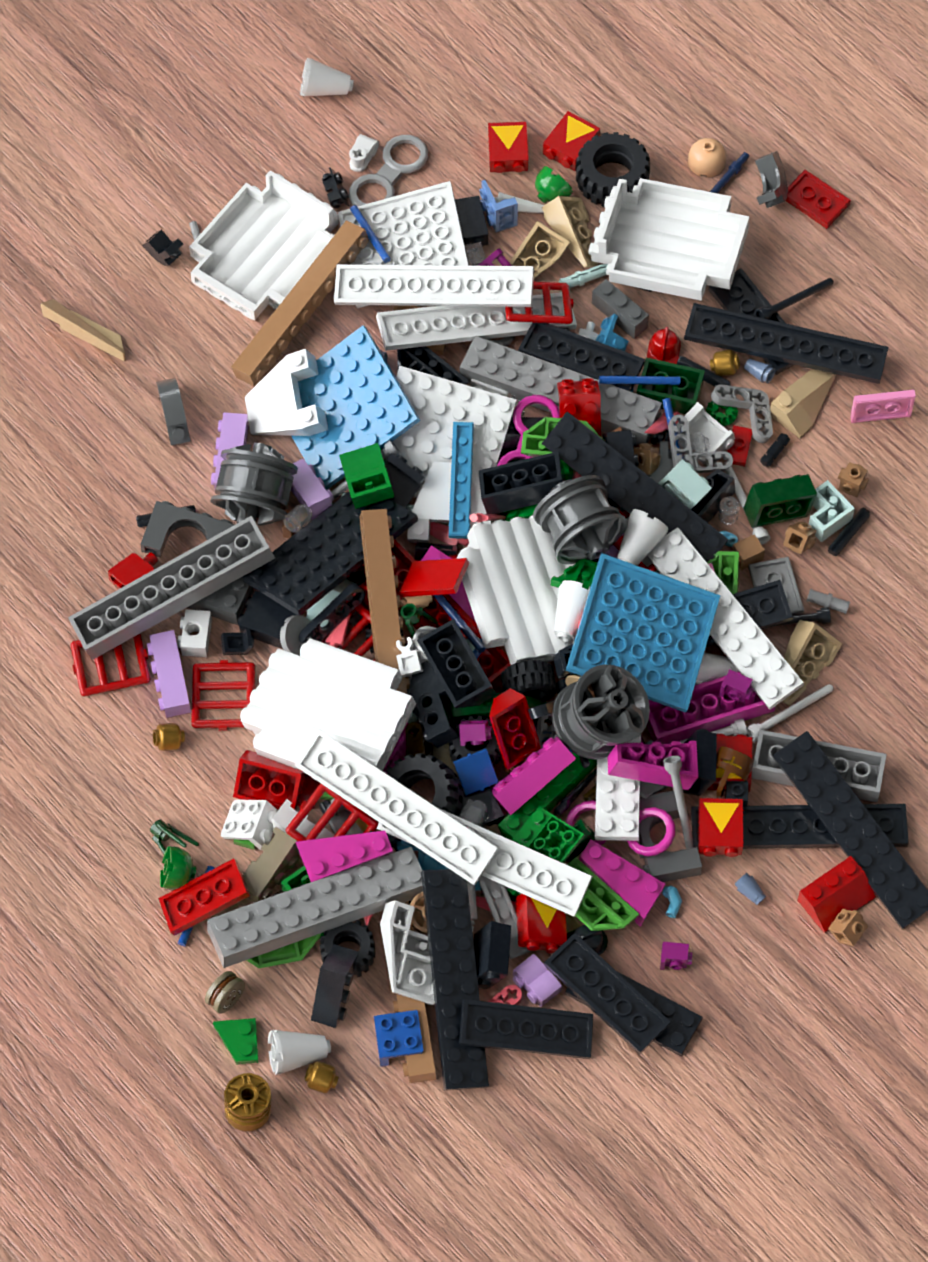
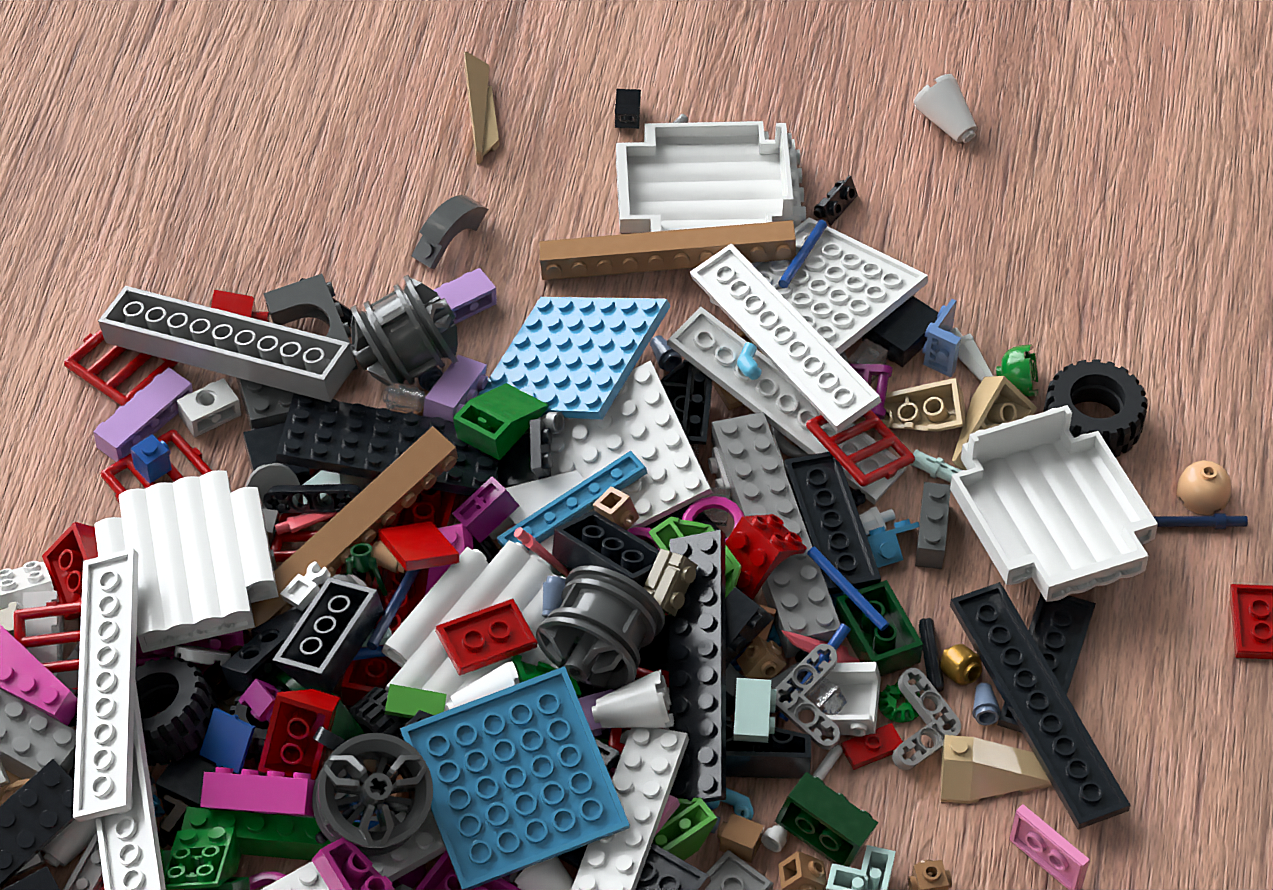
camera: 50 degrees right, 10 degrees down
(168, 736) = (68, 458): pearl gold head -> none
(215, 688) = (151, 458): none -> blue brick
(237, 643) = (225, 447): black bracket -> none
(276, 404) = (533, 296): white wedge -> none
(362, 152) = (902, 192): white piece -> none
(390, 171) = (905, 231): light grey bar -> none
(407, 745) = (201, 654): none -> light grey tile
(423, 527) = (486, 509): none -> magenta hinge
(437, 318) = (747, 363): none -> medium azure arm
(475, 812) = (173, 775): clear brick -> none
(489, 456) = (617, 508): none -> medium nougat brick
(508, 147) = (1031, 306): red brick -> none
(529, 584) = (486, 637): none -> red tile
(530, 530) = (552, 594): none -> sand blue cone
(542, 652) = (407, 701): none -> bright green tile
(568, 139) = (1091, 343): red brick -> none
(568, 800) = (278, 860): black bar -> none
(575, 461) = (670, 580): none -> dark tan brick
(664, 346) = (927, 598): red piece -> none
(729, 510) = (775, 784): clear brick -> none
(767, 312) = (1058, 660): black piece -> none
(773, 180) = (1238, 562): dark grey arch -> none
(774, 450) = (899, 783): black axle -> none

